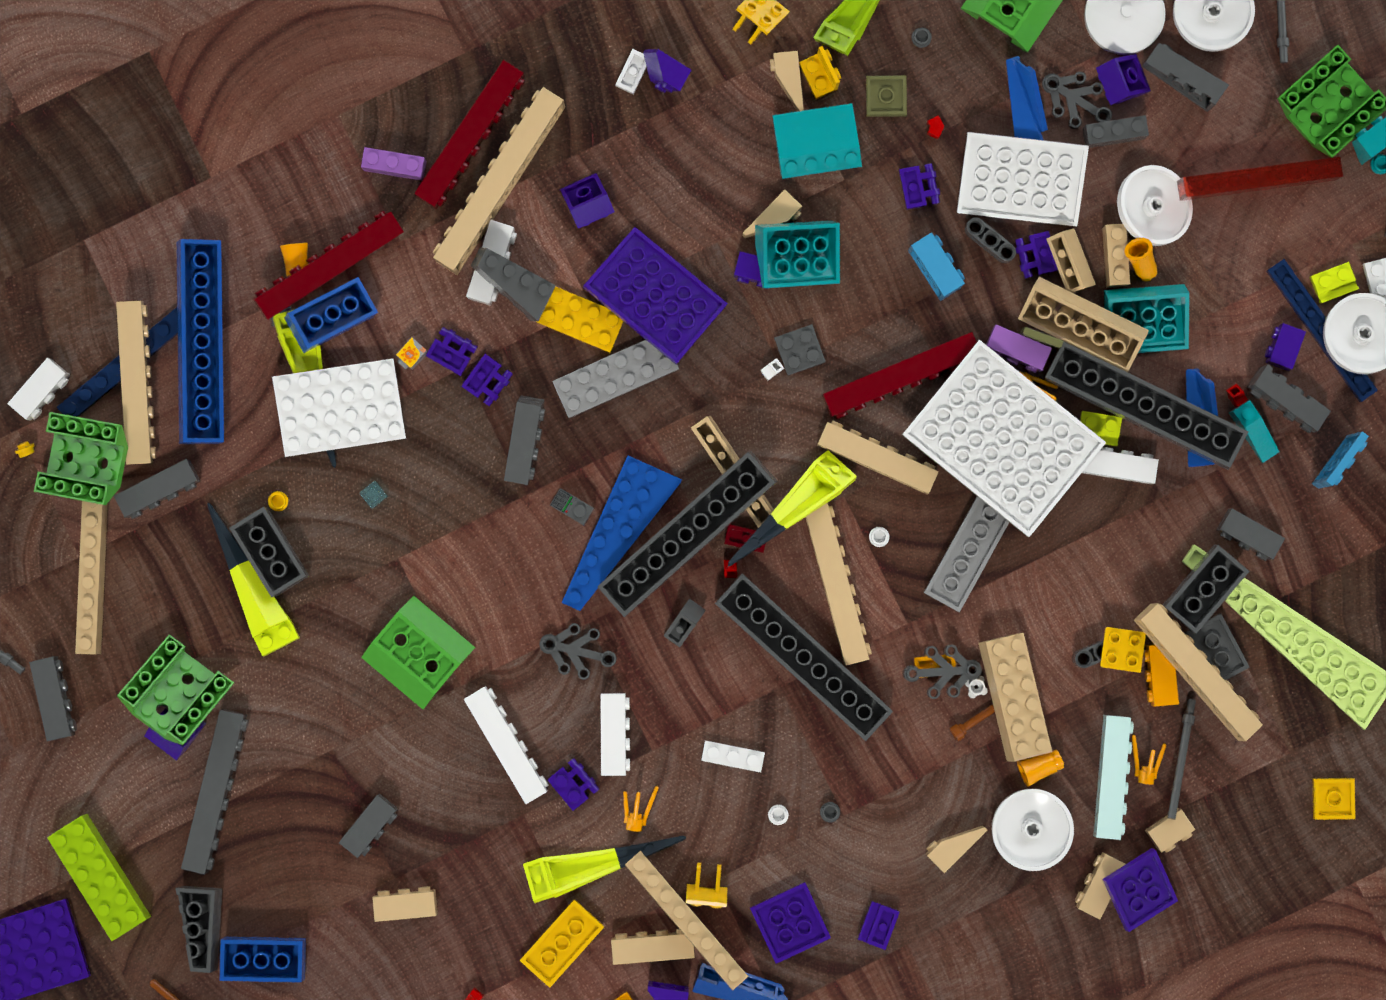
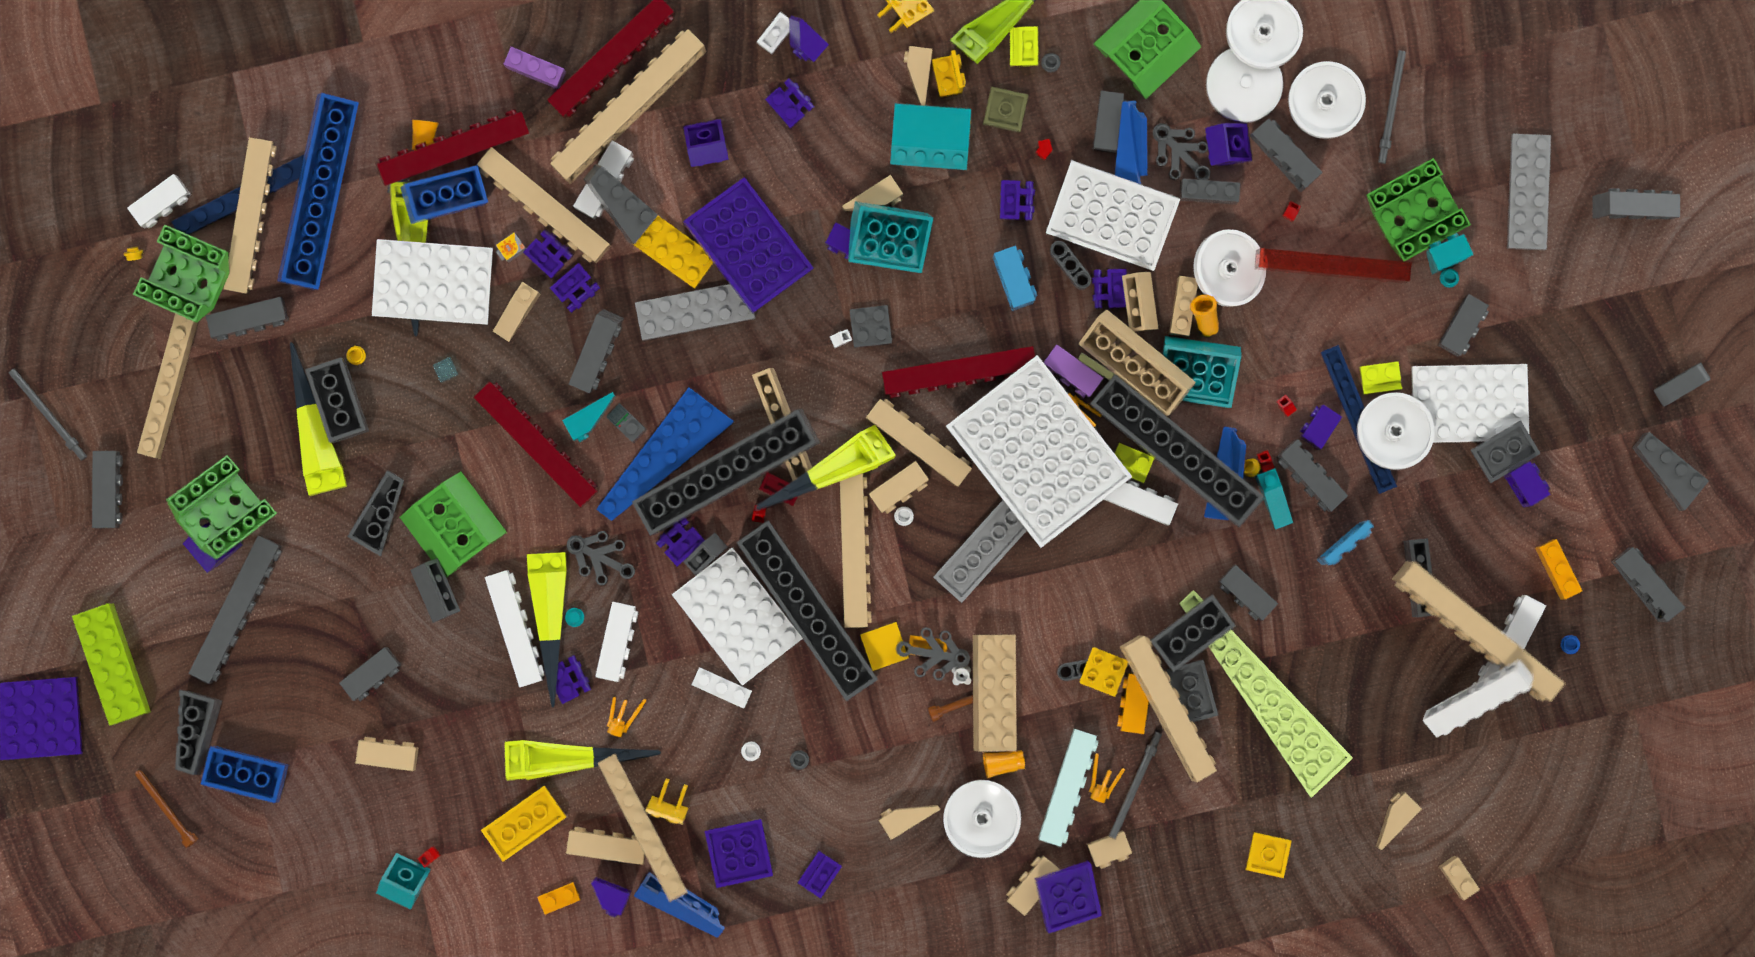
camera: 10 degrees right, 0 degrees up
(337, 665) = (376, 518): none -> dark grey wedge
(415, 724) = (435, 590): none -> dark grey brick
(432, 418) = (516, 311): none -> tan slope
(435, 302) = (544, 205): none -> tan brick
(484, 550) = (536, 444): none -> dark red brick
(529, 513) = (585, 420): none -> teal slope
(530, 694) = (547, 585): none -> neon yellow plate
(565, 718) = (574, 617): none -> teal plate
(659, 144) = (785, 106): none -> dark purple plate
(661, 619) = (682, 547): none -> dark purple plate
(732, 679) = (737, 616): none -> white plate
(868, 509) = (899, 488): none -> tan brick
(887, 675) = (881, 646): none -> yellow tile
(890, 27) = (1024, 46): none -> neon yellow plate
(994, 84) = (1108, 121): none -> dark grey brick
(1203, 133) = (1291, 211): none -> red piece
(1224, 405) = (1251, 467): none -> yellow plate
(1245, 333) = (1286, 405): none -> red piece

